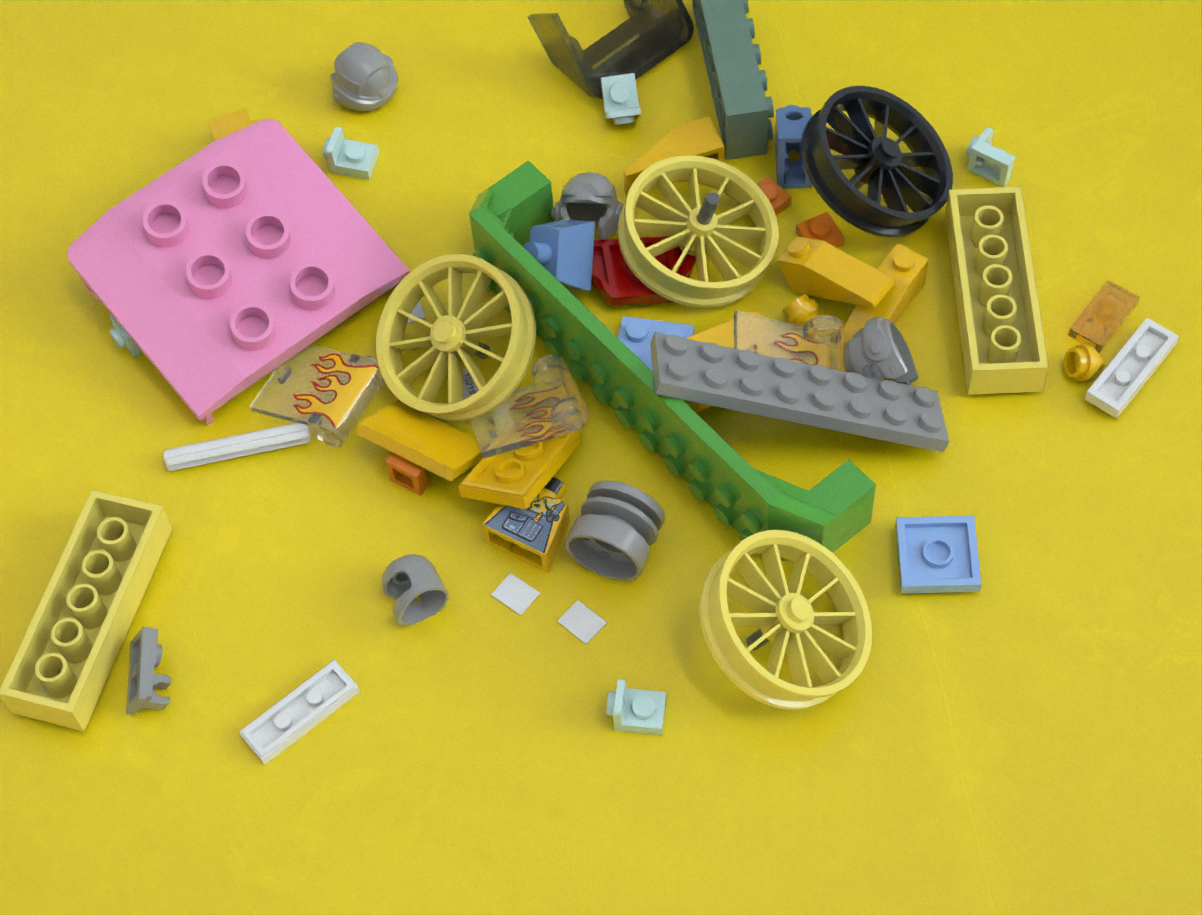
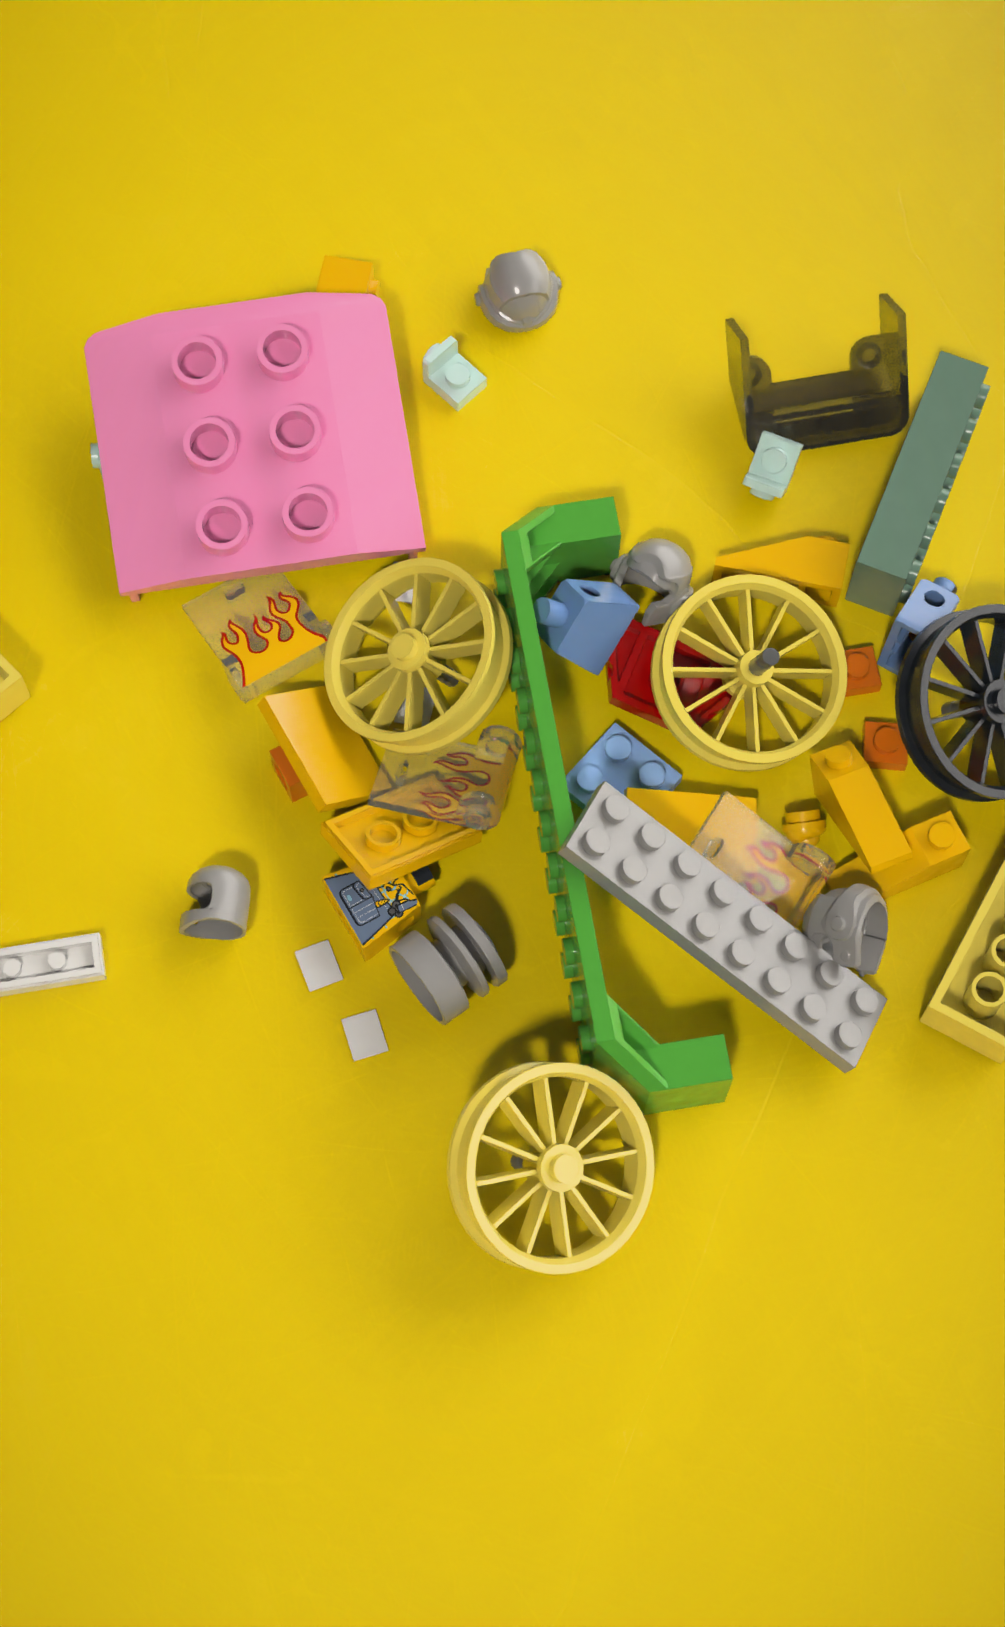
camera: 25 degrees right, 10 degrees up
(236, 446) = (142, 643): white axle -> none
(636, 709) = (356, 1163): light aqua bracket -> none
(937, 554) = (765, 1181): light blue plate -> none

